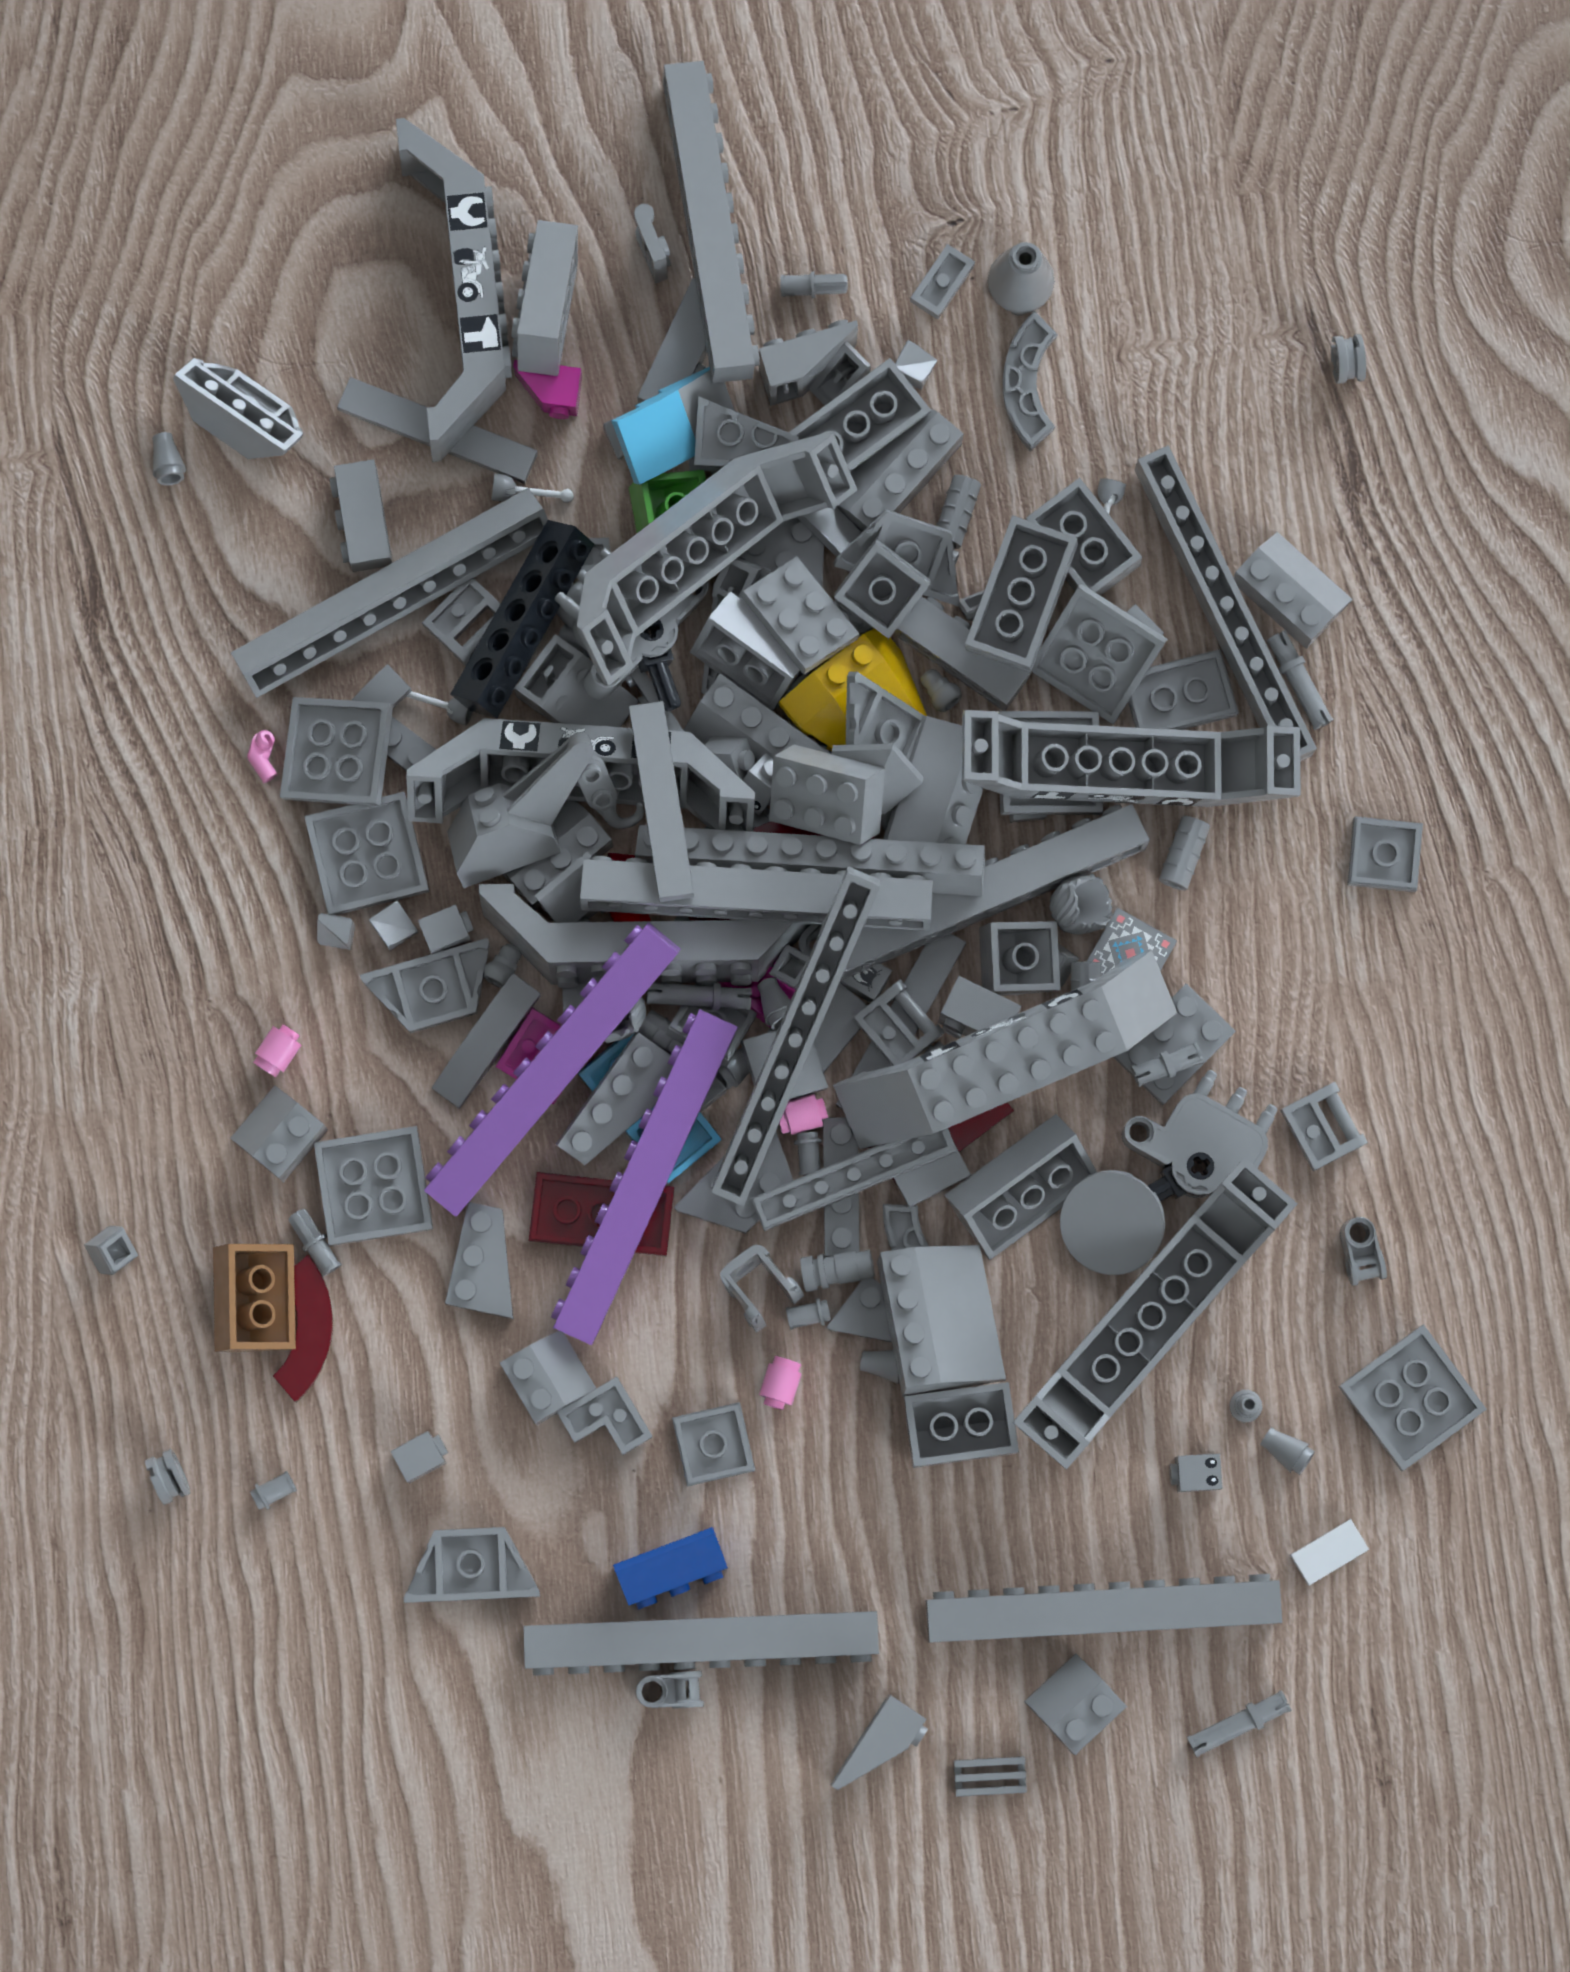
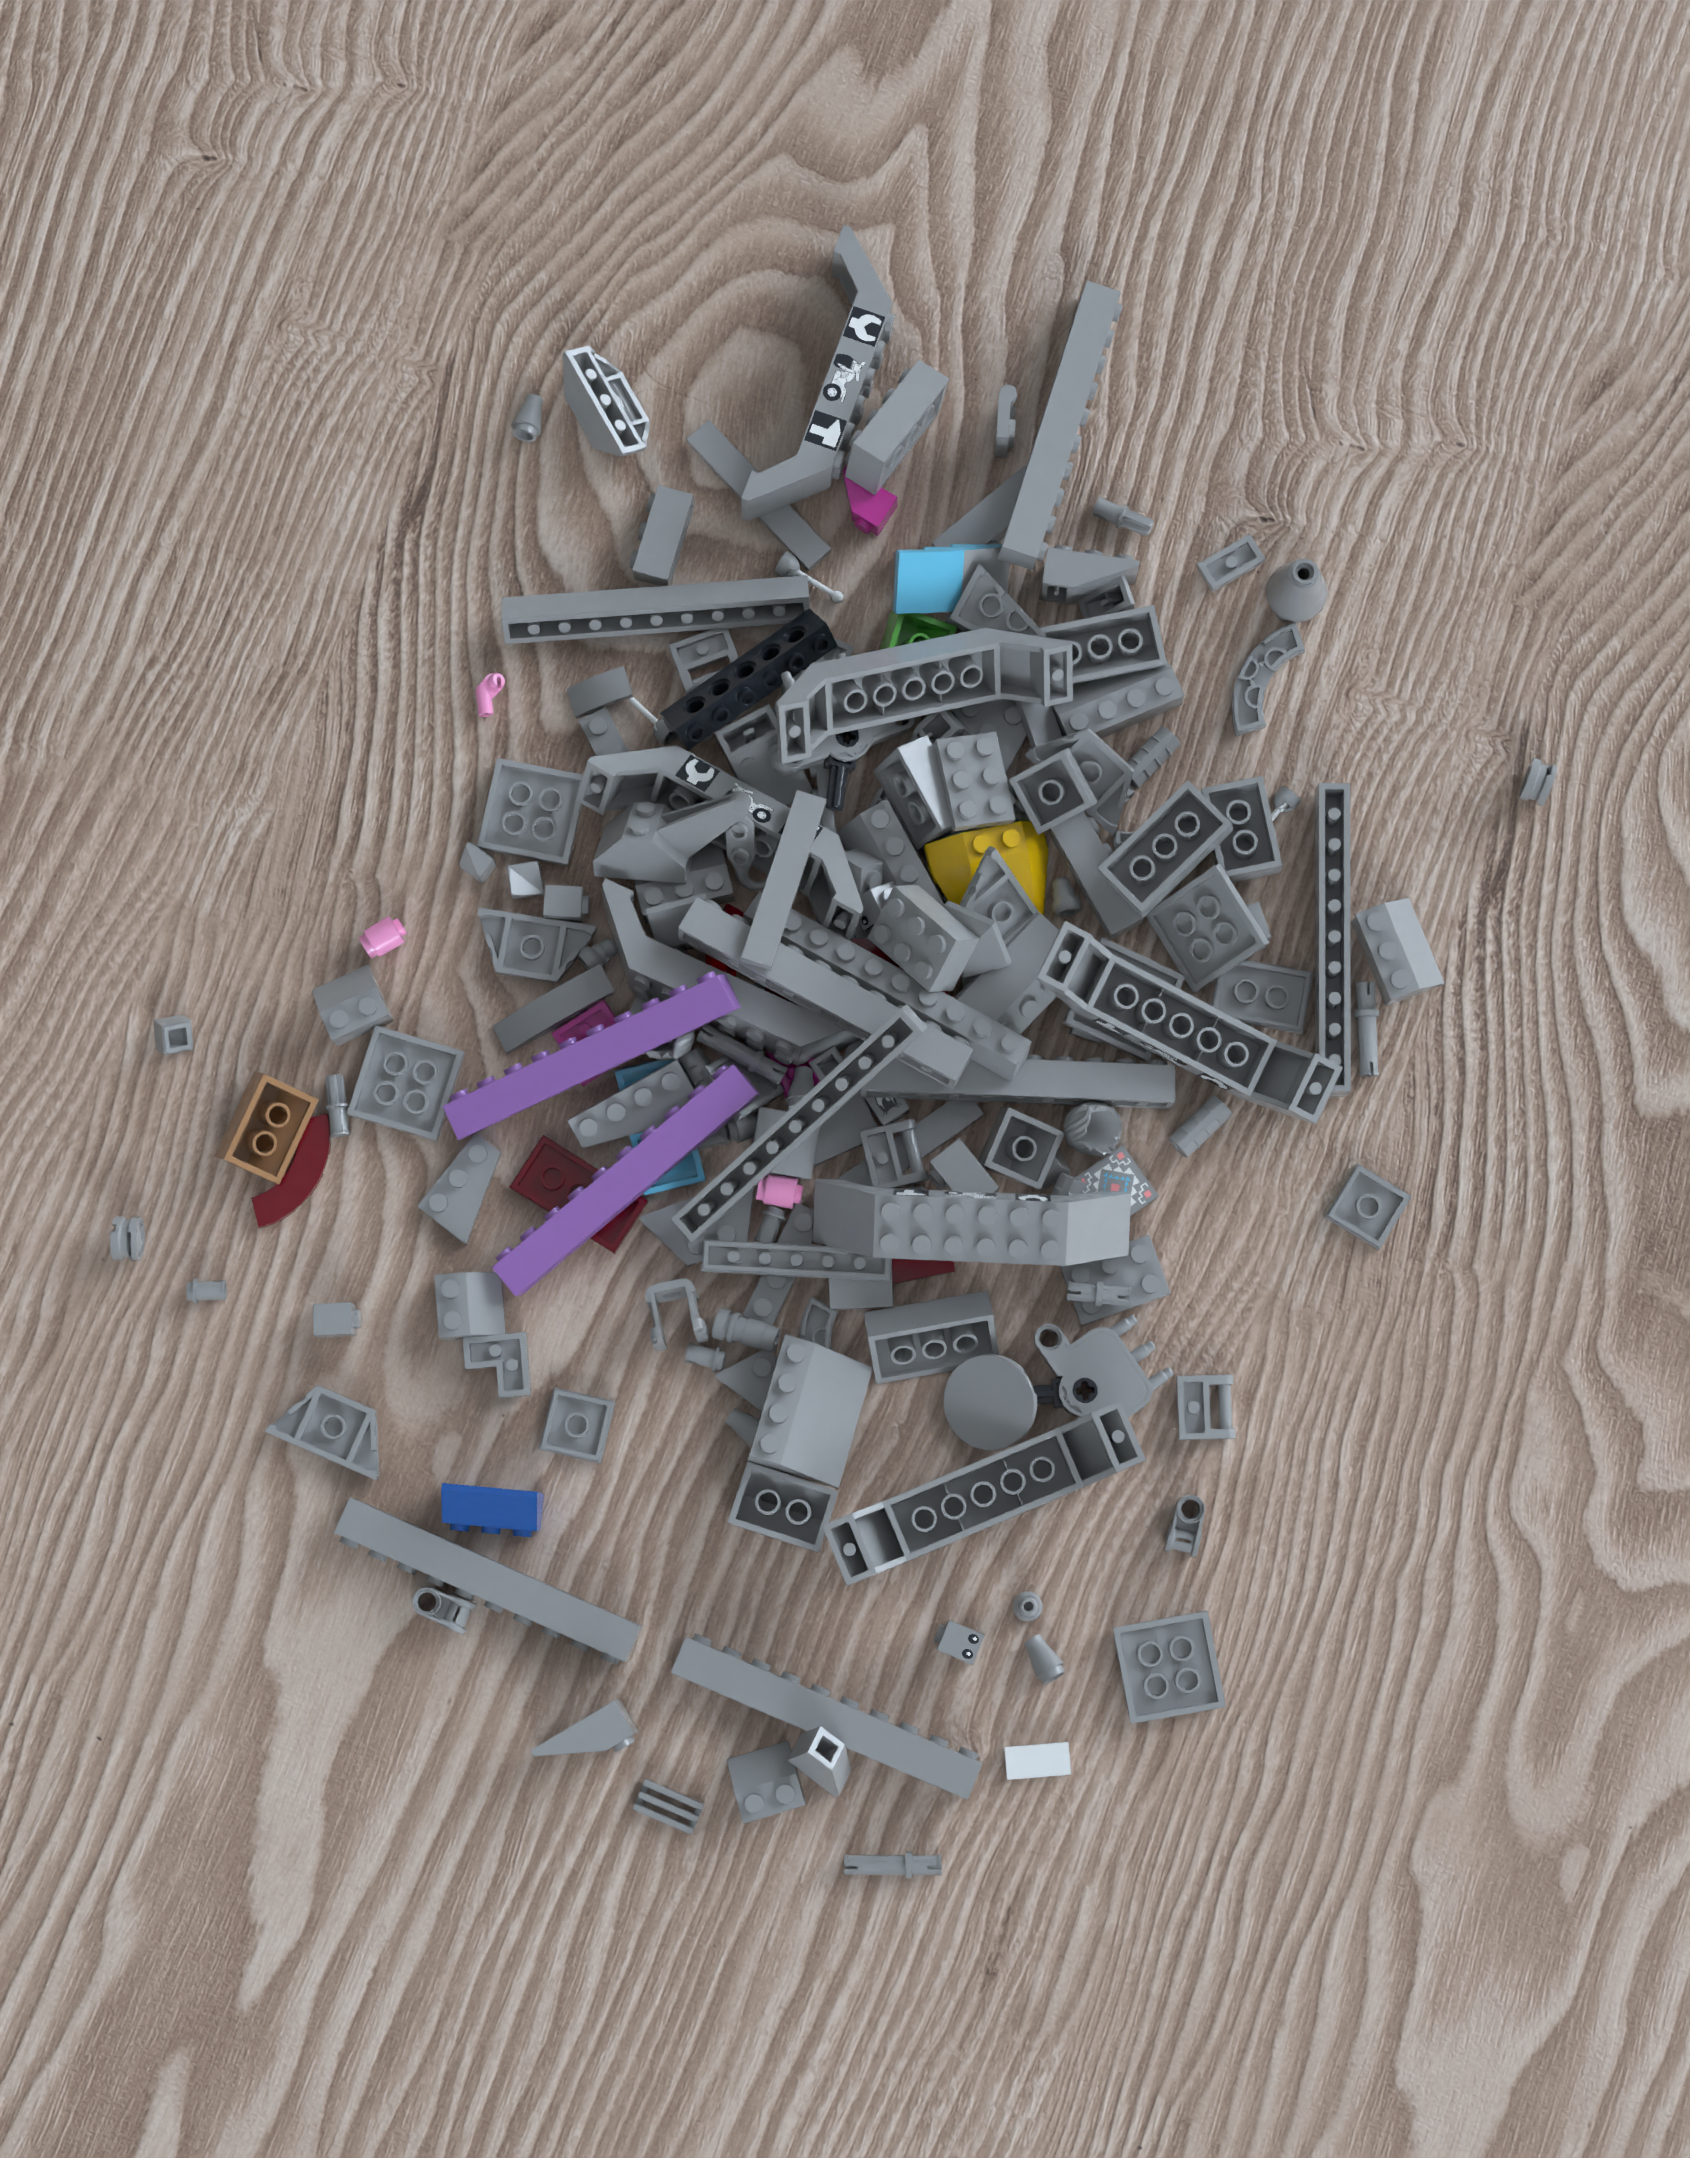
camera: 35 degrees right, 0 degrees up
(336, 751) = (548, 717): light grey plate -> none
(780, 1382) = (655, 1401): bright pink brick -> none
(915, 364) = (1174, 621): light grey slope -> none
(1120, 1653) = (822, 1759): none -> light grey slope

